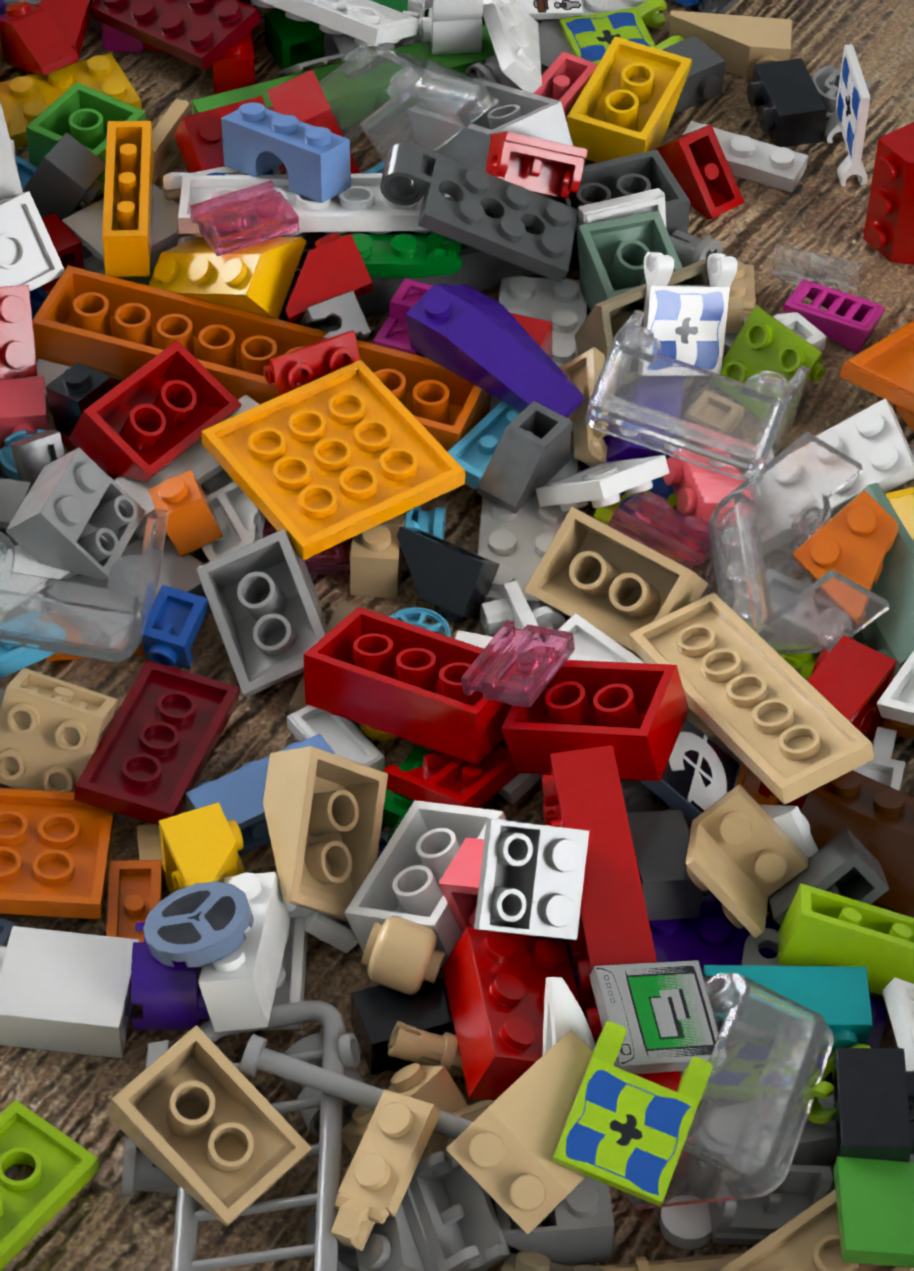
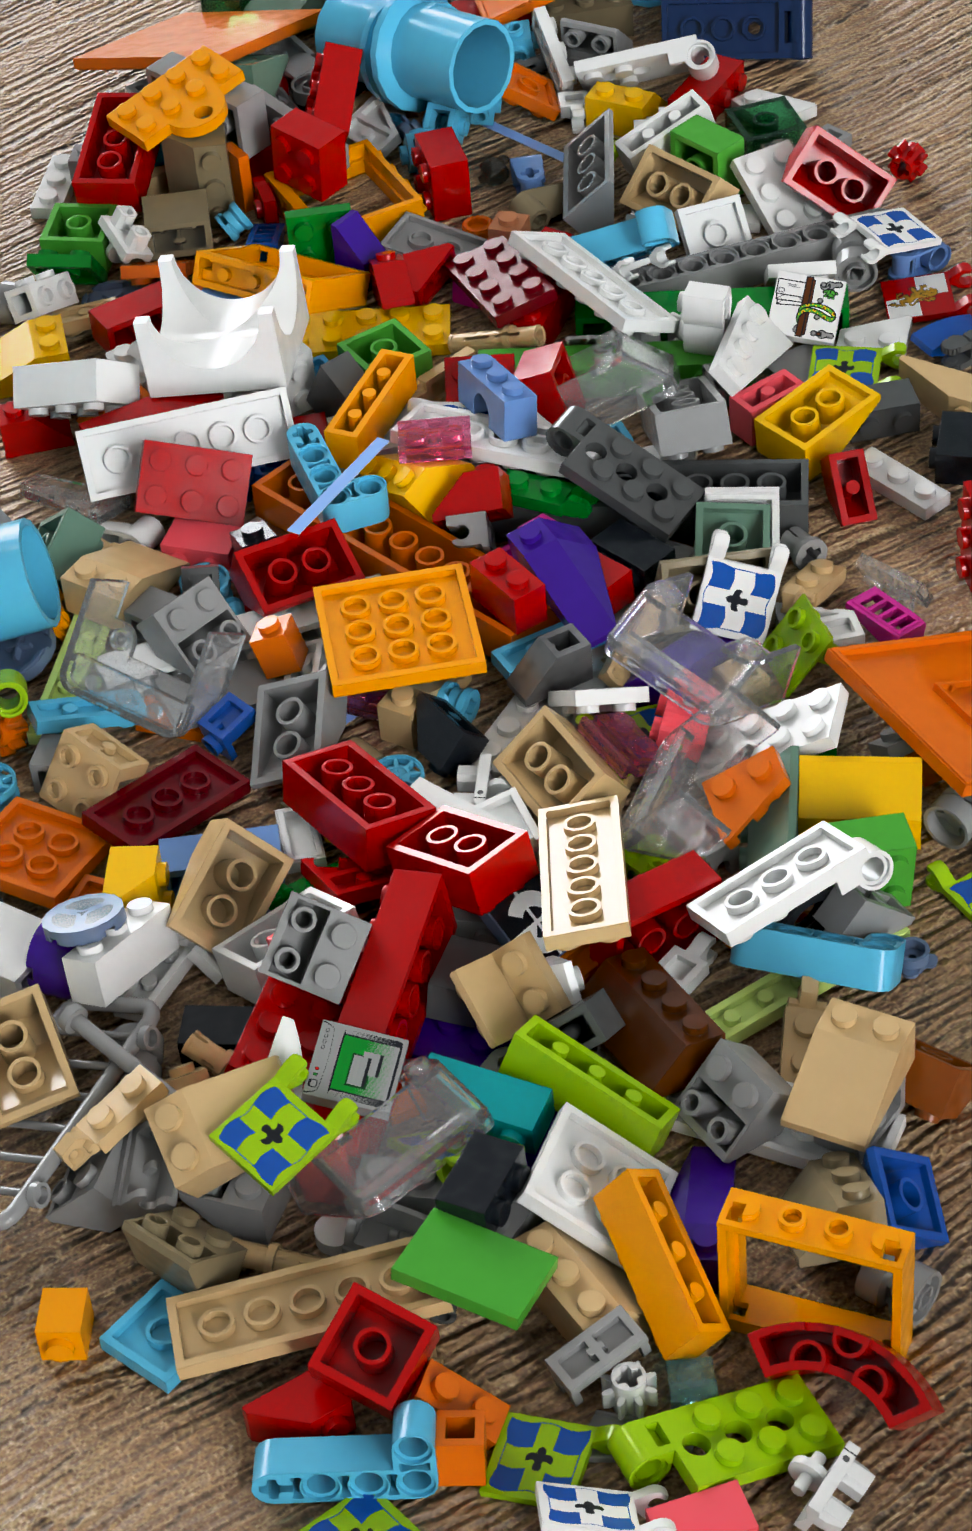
camera: 30 degrees right, 5 degrees down
(136, 301) = (358, 504): none -> medium azure beam
(163, 300) = (338, 485): none -> light blue sticker
(202, 84) = (508, 337): none -> tan pin
(311, 362) = (427, 555): red hinge -> none
(402, 955) = (226, 986): tan head -> none
(437, 379) = (508, 590): none -> red brick
(518, 664) = (419, 802): clear pink plate -> none
(536, 163) = (683, 447): hinge -> none
(540, 299) = (634, 550): none -> black brick

